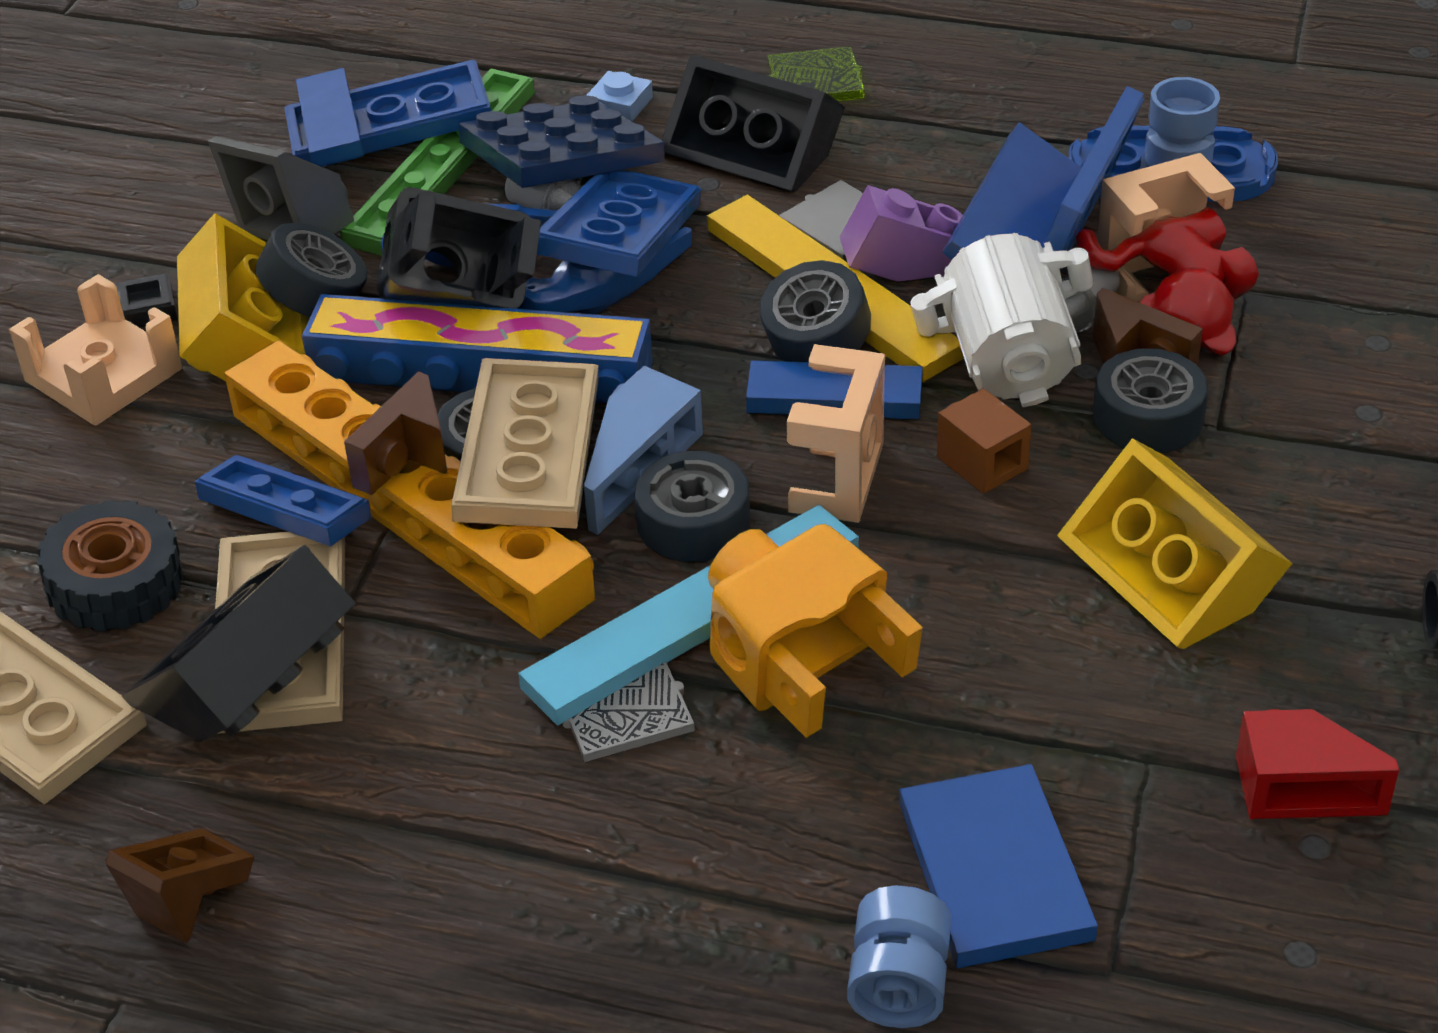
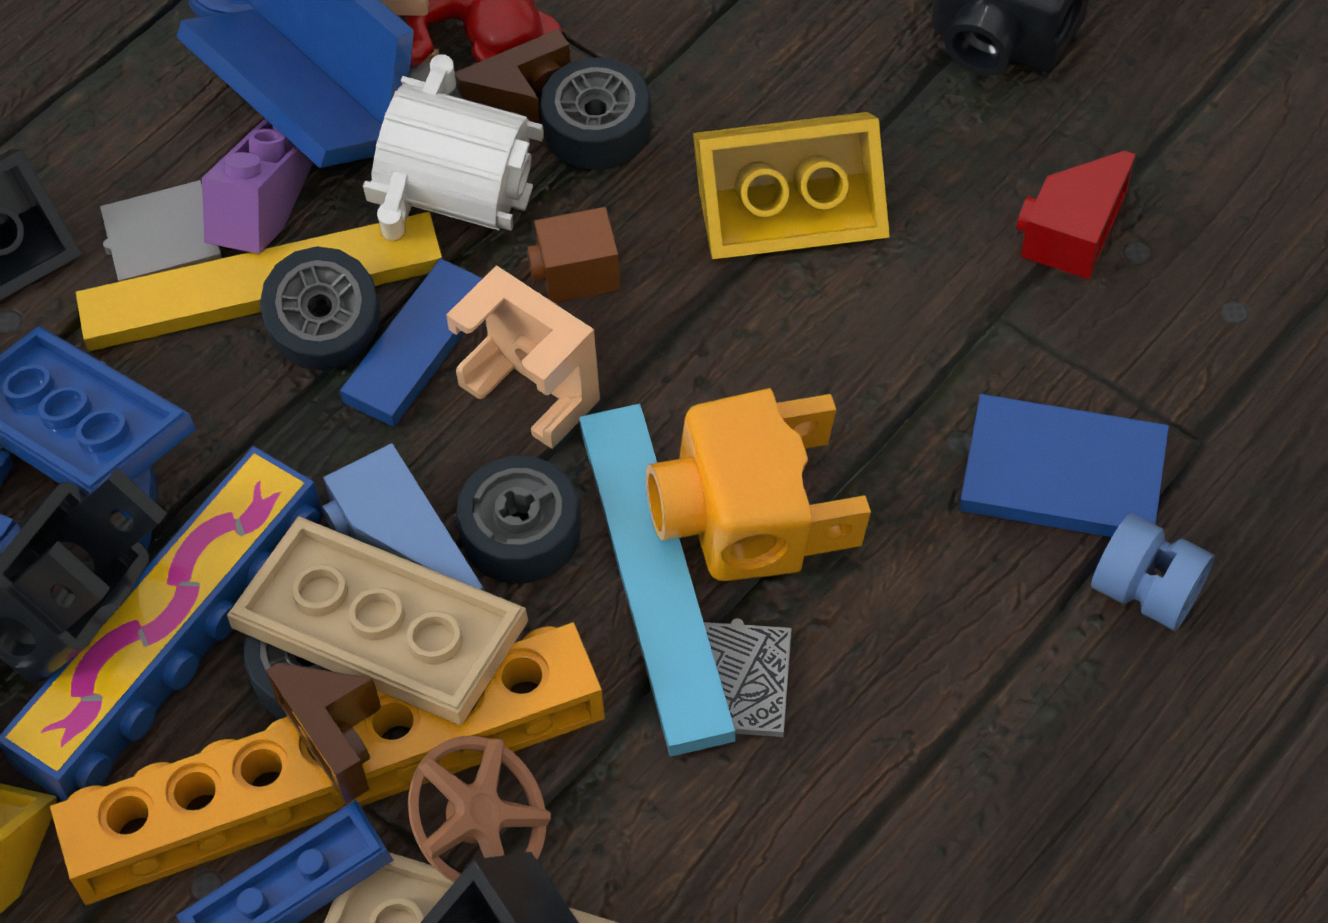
camera: 65 degrees left, 15 degrees up
(390, 568) = (475, 809): none -> nougat wheel

